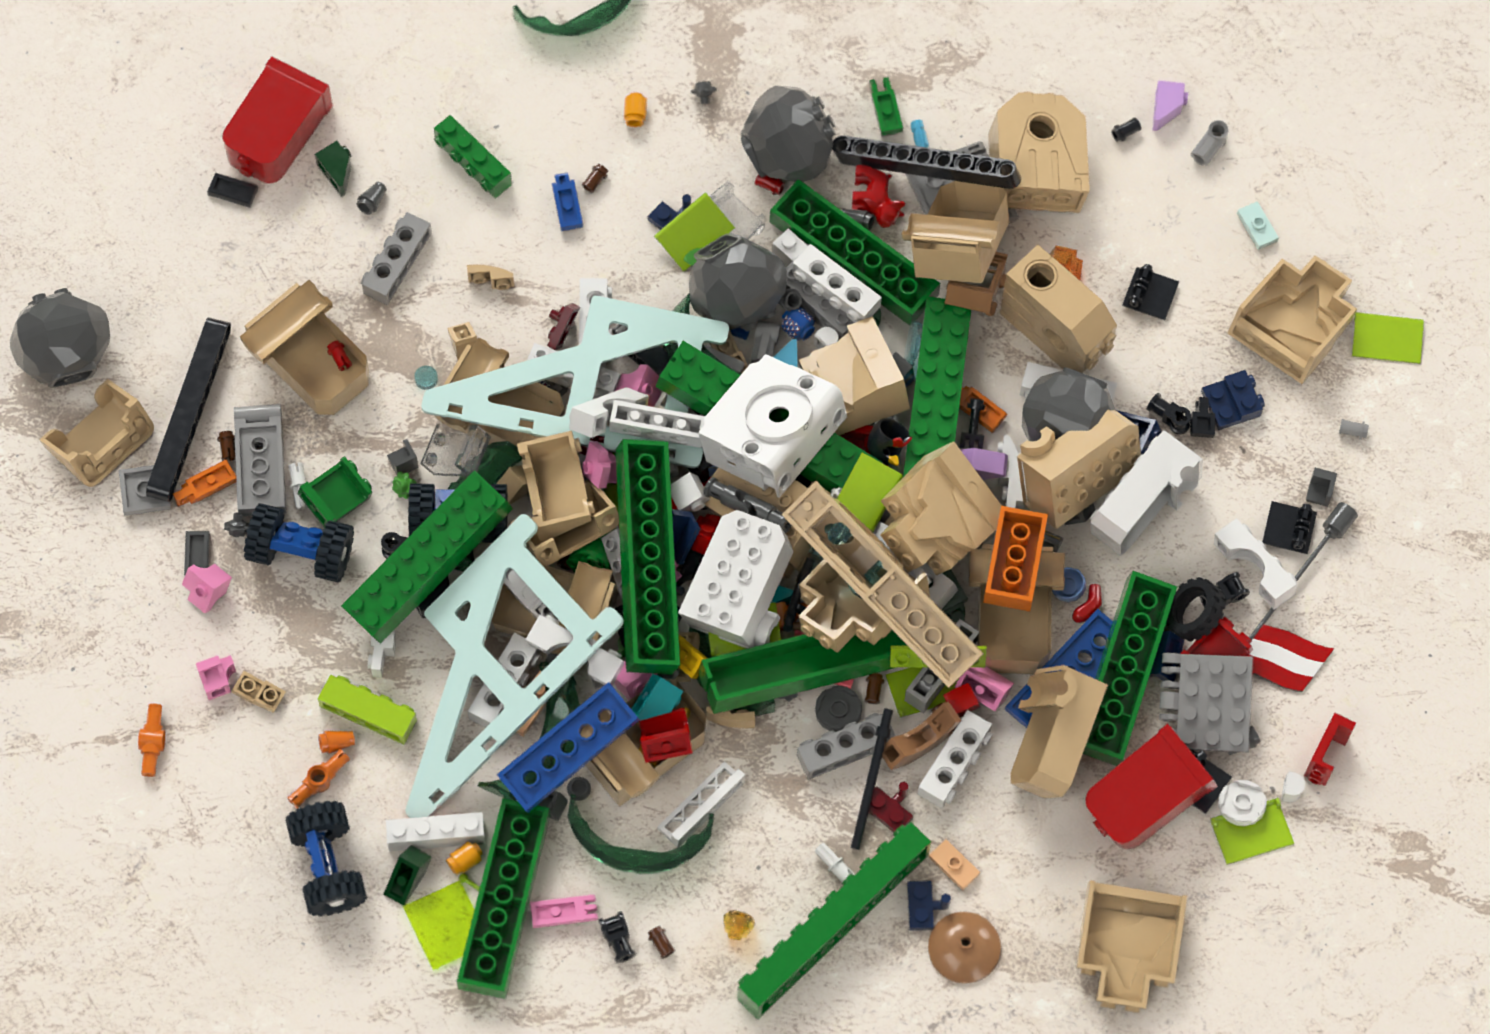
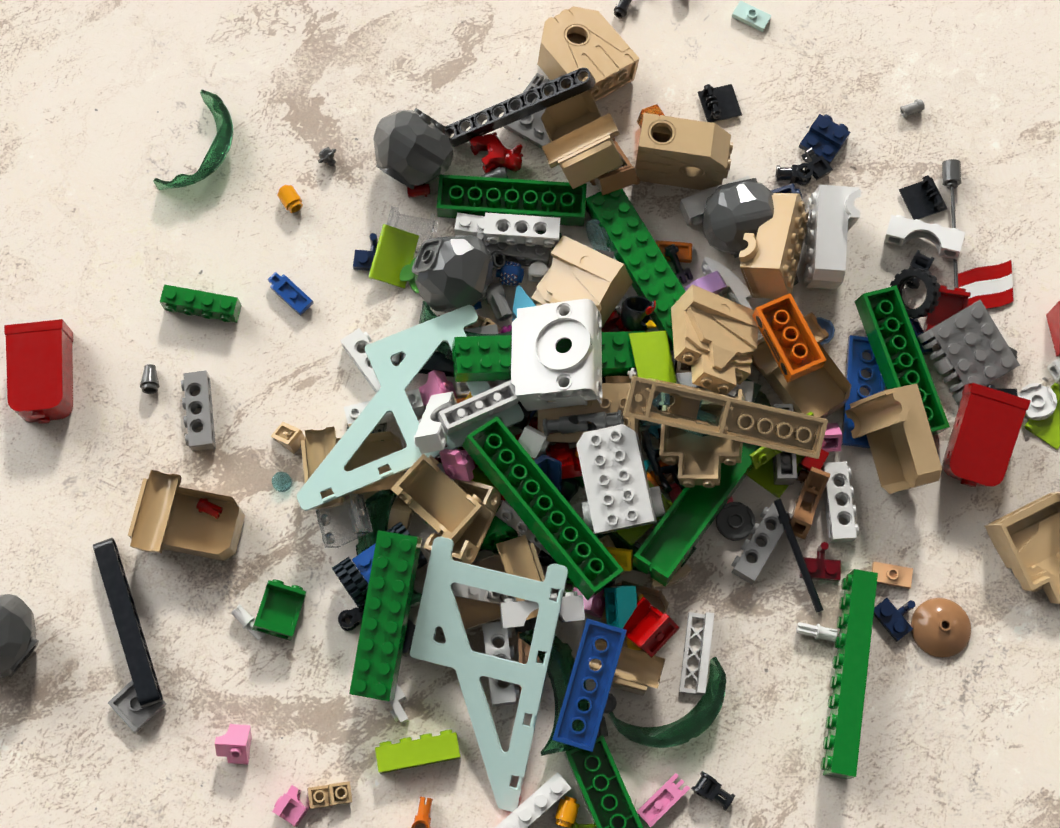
camera: 35 degrees left, 5 degrees up
(103, 436) = (76, 687): tan windscreen -> none
(197, 549) = (209, 722): dark grey tile -> none
(205, 483) = (179, 667): orange hinge -> none
(226, 441) = (174, 628): reddish brown pin -> none
(232, 190) = (43, 439): black tile -> none
(237, 526) = (225, 683): dark grey plant -> none
(259, 472) = (213, 631): light grey hinge -> none
(271, 534) = (259, 673): black plate -> none
(334, 740) = (410, 793): orange cone -> none
(335, 165) = (106, 373): dark green slope -> none
(401, 484) = (323, 570): bright green plant -> none
(404, 459) = (309, 551): dark grey panel -> none
(500, 278) = (281, 377): tan slope -> none
(565, 320) = (351, 374): dark red plate -> none
(598, 173) = (297, 263): reddish brown pin -> none
(661, 941) = (743, 772): reddish brown pin -> none
(738, 924) = (787, 722): clear yellow cone -> none
(874, 688) = (748, 490): reddish brown pin -> none
(886, 108) = (457, 90): green hinge -> none
(919, 133) = (493, 95): medium azure axle -> none
(1093, 603) = (842, 336): red arm -> none
(1295, 316) = (825, 59): tan panel -> none
(1321, 487) = (923, 159): dark grey panel -> none
(1387, 337) = (885, 36): lime piece -> none

